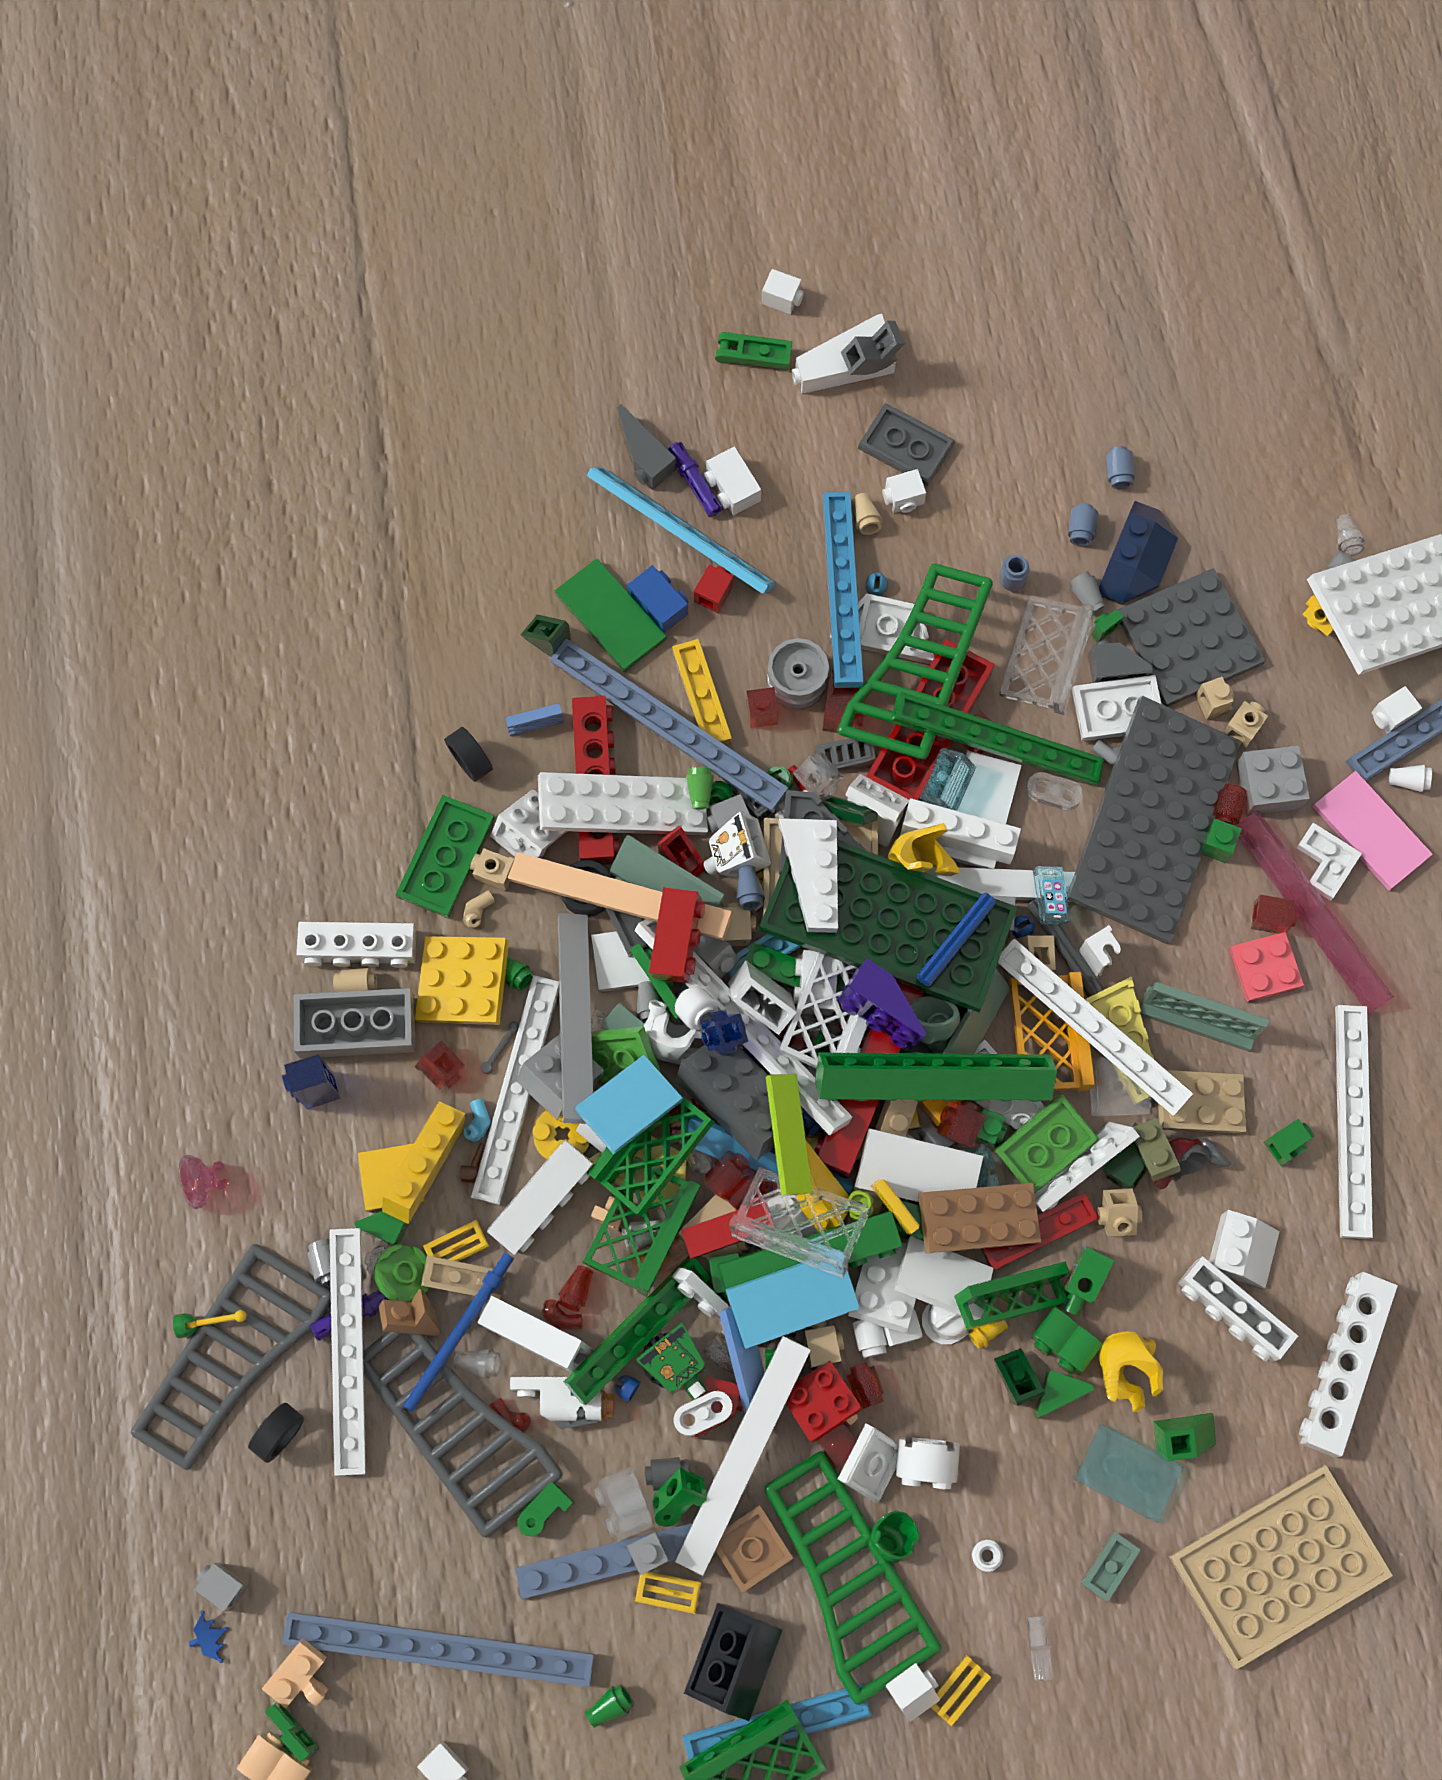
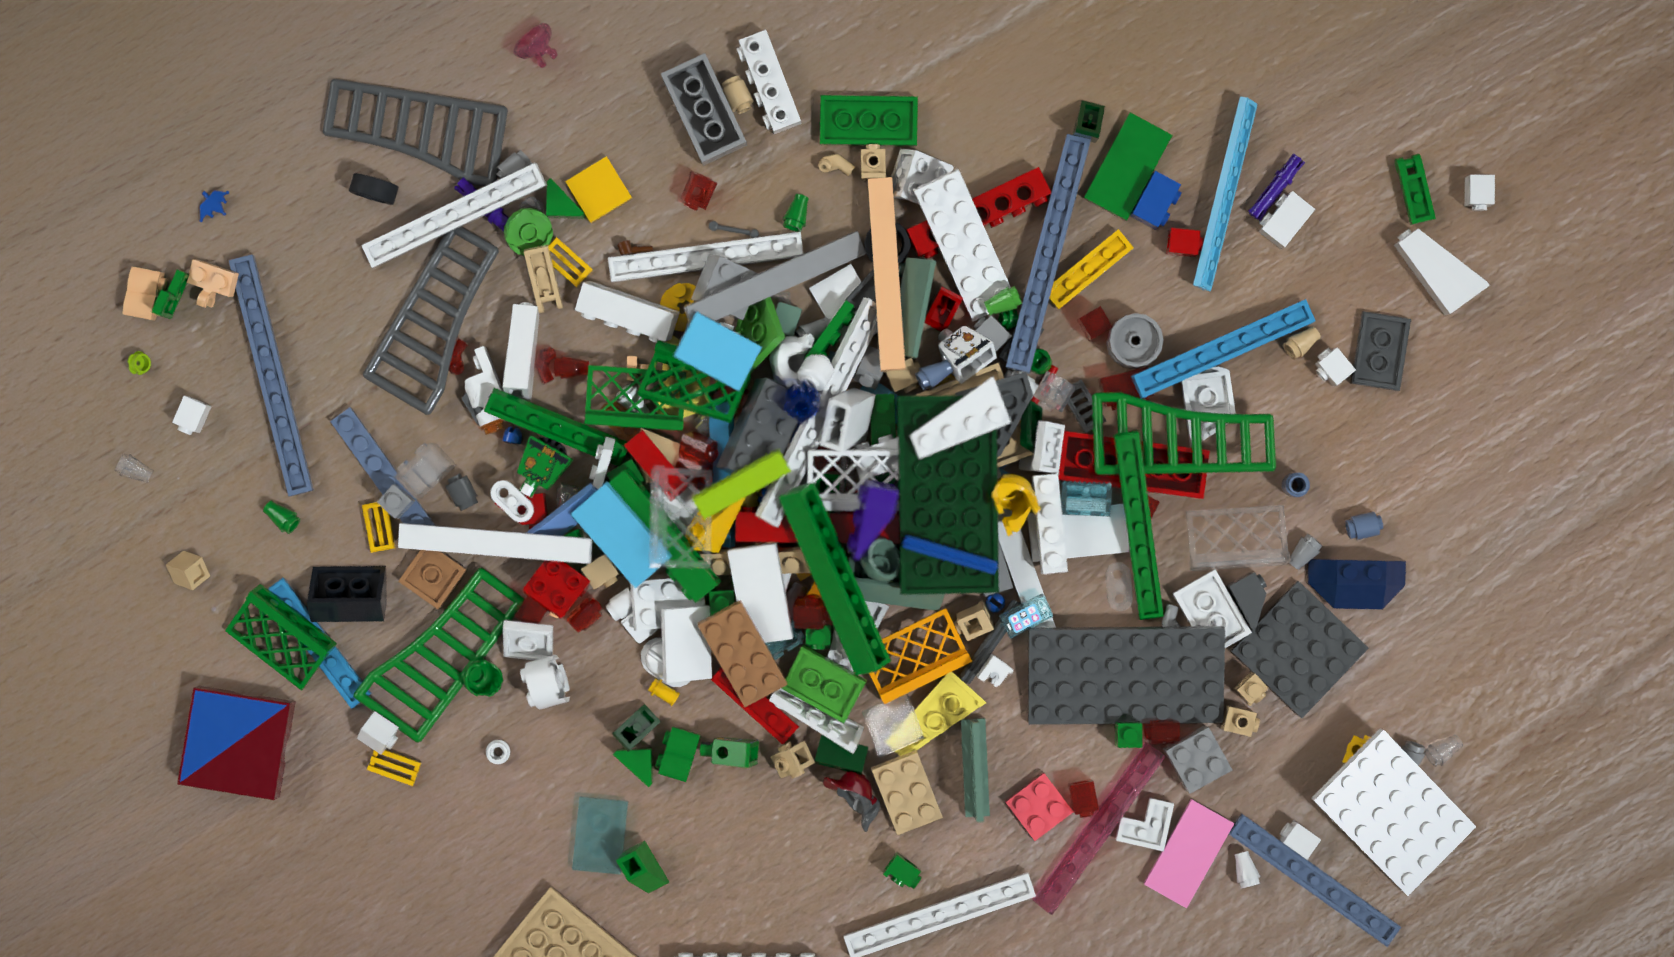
camera: 65 degrees right, 15 degrees up
(186, 1324) = (426, 84): hinge -> none
(220, 1586) = (250, 196): light grey brick -> none
(311, 1082) = (641, 98): clear blue brick -> none
(410, 1317) = (497, 251): medium nougat slope -> none
(423, 1162) = (616, 211): yellow brick -> none
(462, 980) = (772, 178): yellow plate -> none
(468, 754) = (958, 103): black tyre -> none
(478, 1362) = (486, 316): clear cone -> none
(480, 1123) = (667, 240): medium azure arm -> none
(491, 1282) = (548, 301): blue bar -> none
(534, 719) = (1010, 143): medium blue tile -> none
(534, 1517) = (394, 407): green leg -> none
(648, 456) = (1280, 139): dark grey slope -> none
(676, 935) = (866, 334): red brick -> none
(677, 1496) = (446, 506): green leg -> none
(861, 1197) = (721, 554): lime plate -> none
(871, 581) = (1242, 369): dark azure hinge -> none
(873, 353) = (1445, 293): dark grey brick -> none
(895, 1205) = (723, 586): yellow tile -> none
(1013, 1284) = (702, 699): green fence -> none
(1039, 1648) = (447, 814): clear axle -> none
(1094, 1027) = (927, 687): white plate -> none
(1106, 624) = (1281, 577): green plate -> none
(1110, 1566) = (525, 845): sand green plate -> none
(1120, 467) = (1429, 538): sand blue brick -> none
(1128, 1349) = (687, 803): yellow piece -> none
(1156, 1150) = (849, 769): olive plate -> none
(1237, 1309) = (753, 875): white brick -> none
(1244, 1248) = (803, 864): white slope -> none

